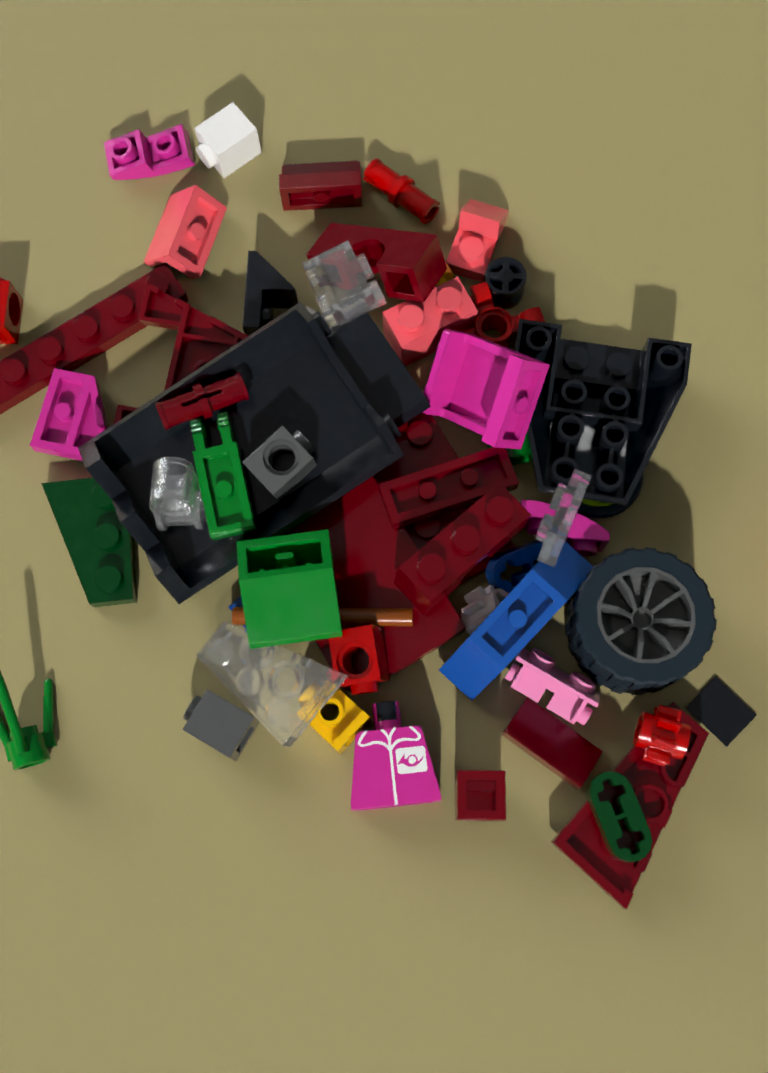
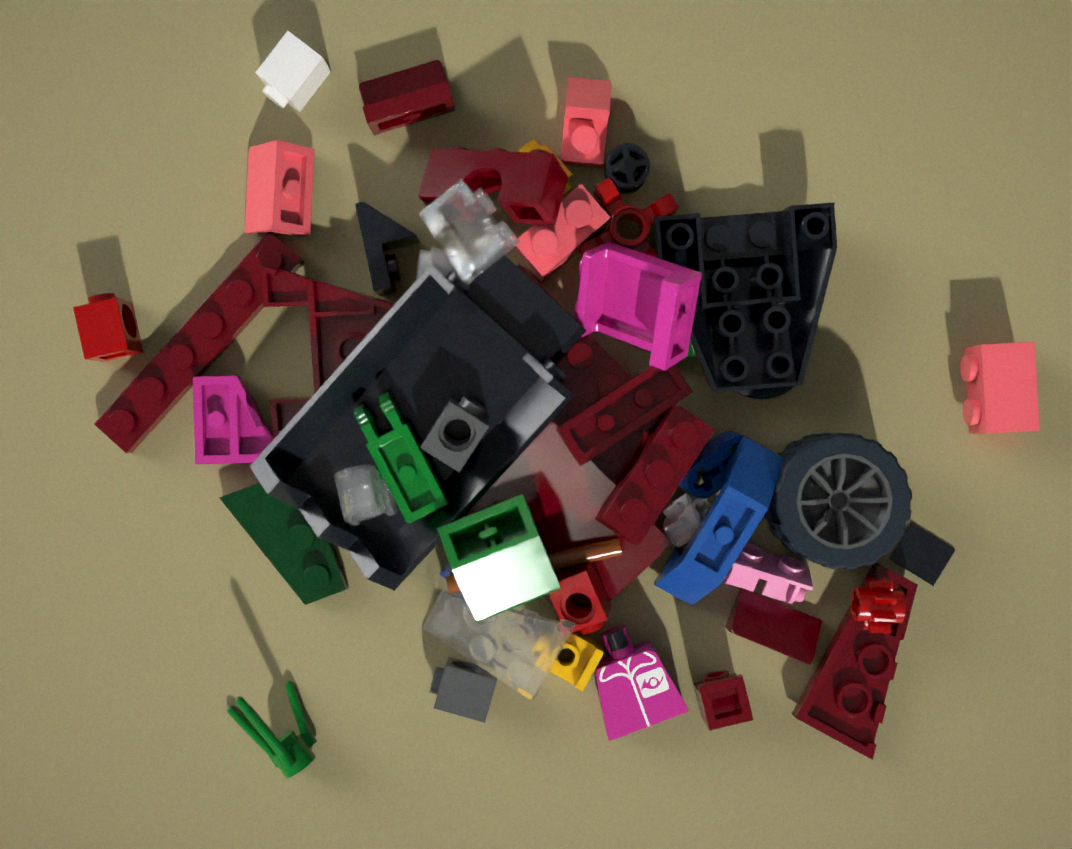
camera: 20 degrees left, 15 degrees up
(151, 156) = (211, 107): dark pink slope -> none
(202, 401) = (335, 412): dark red pin -> none
(401, 191) = (493, 87): red pin -> none
(556, 528) = (744, 441): clear plate -> none
(584, 536) = (755, 420): dark pink slope -> none
(629, 811) = (858, 678): dark green beam -> none

